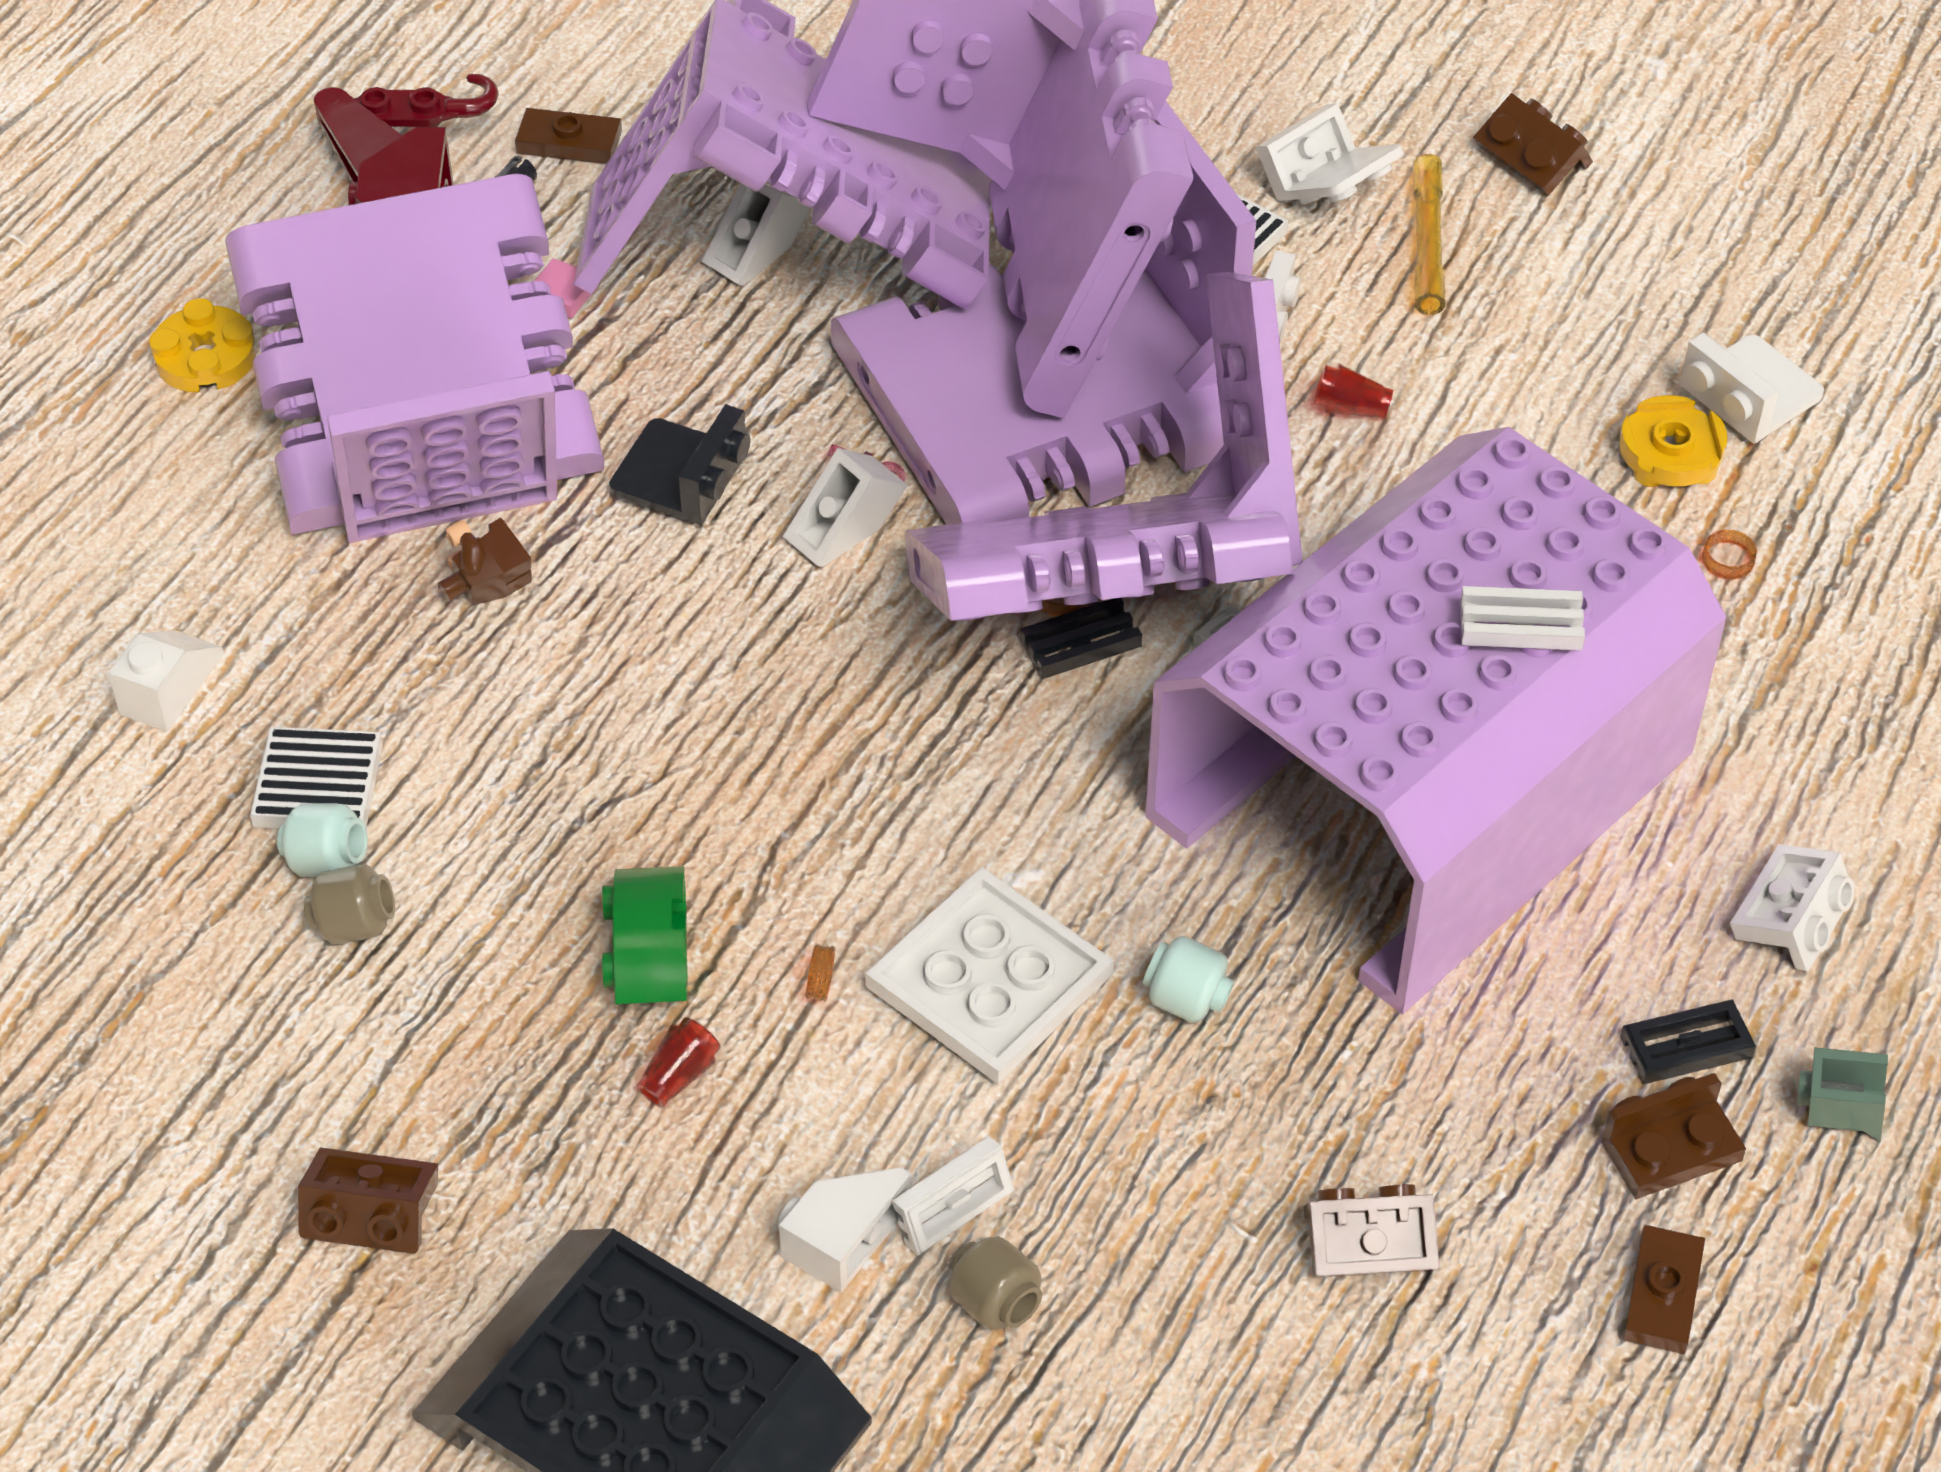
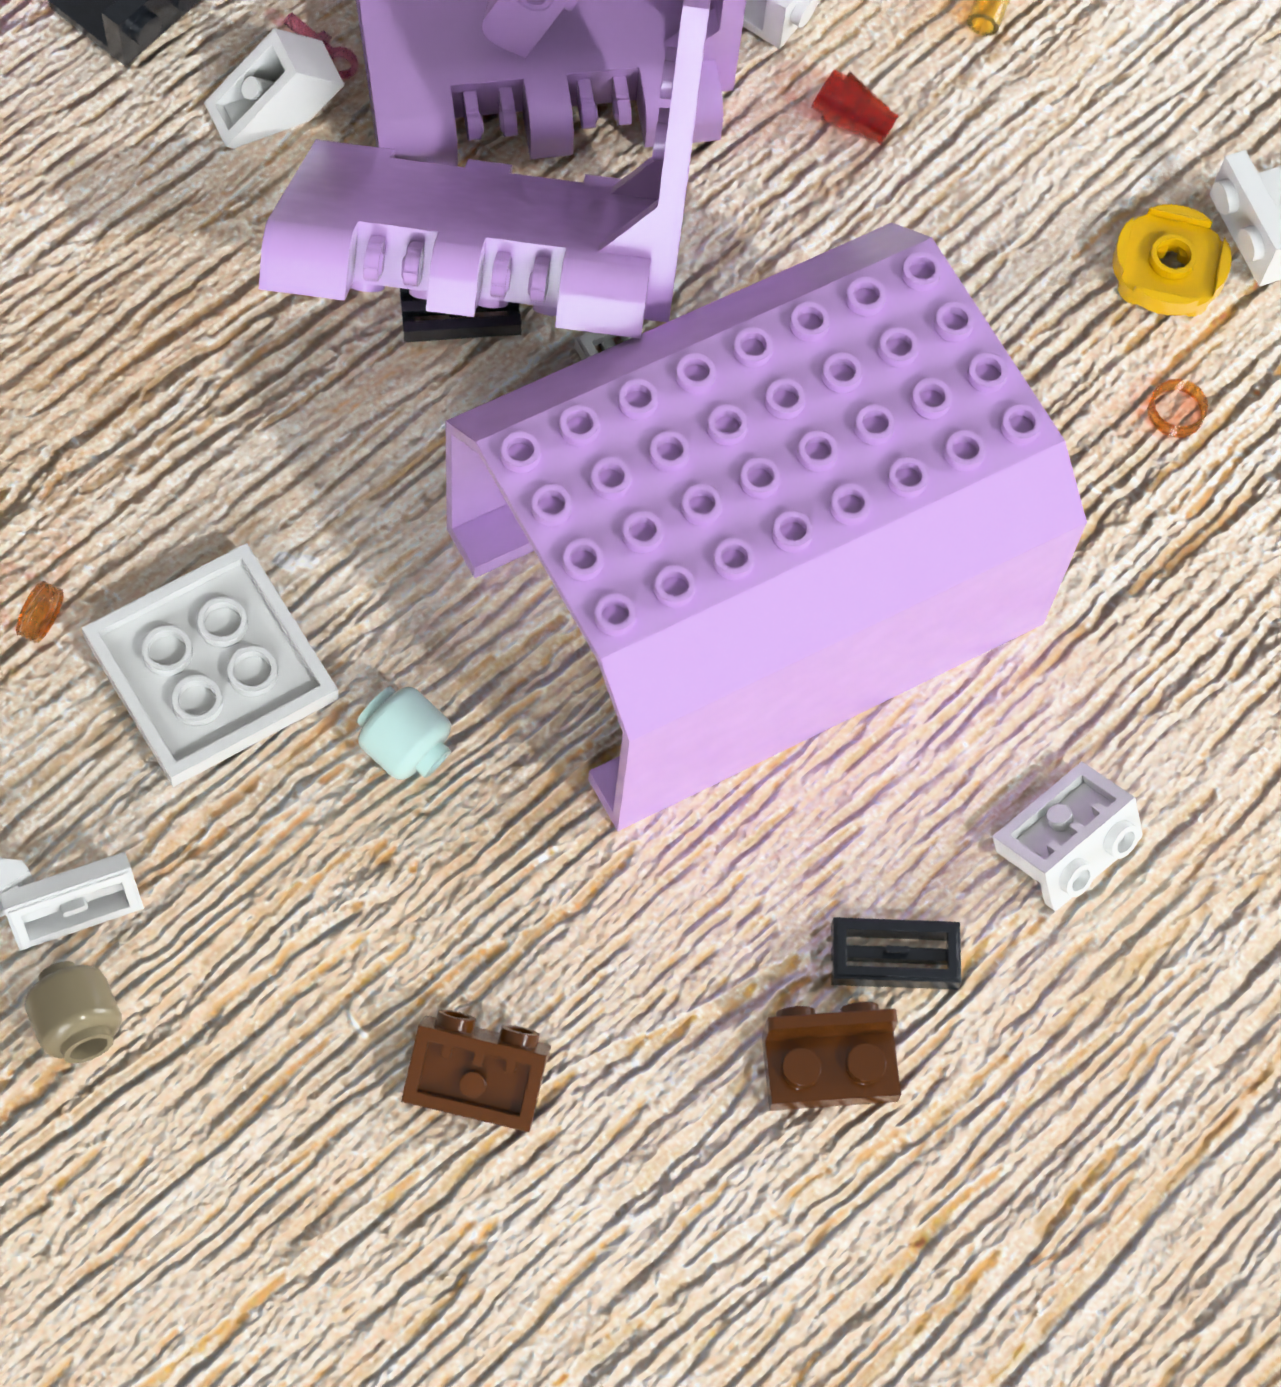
camera: 10 degrees right, 15 degrees up
(1521, 610) = (842, 468): white tile -> none
(1664, 1289) = (752, 1222): reddish brown plate -> none
(1845, 1090) = (1029, 1064): sand green window -> none

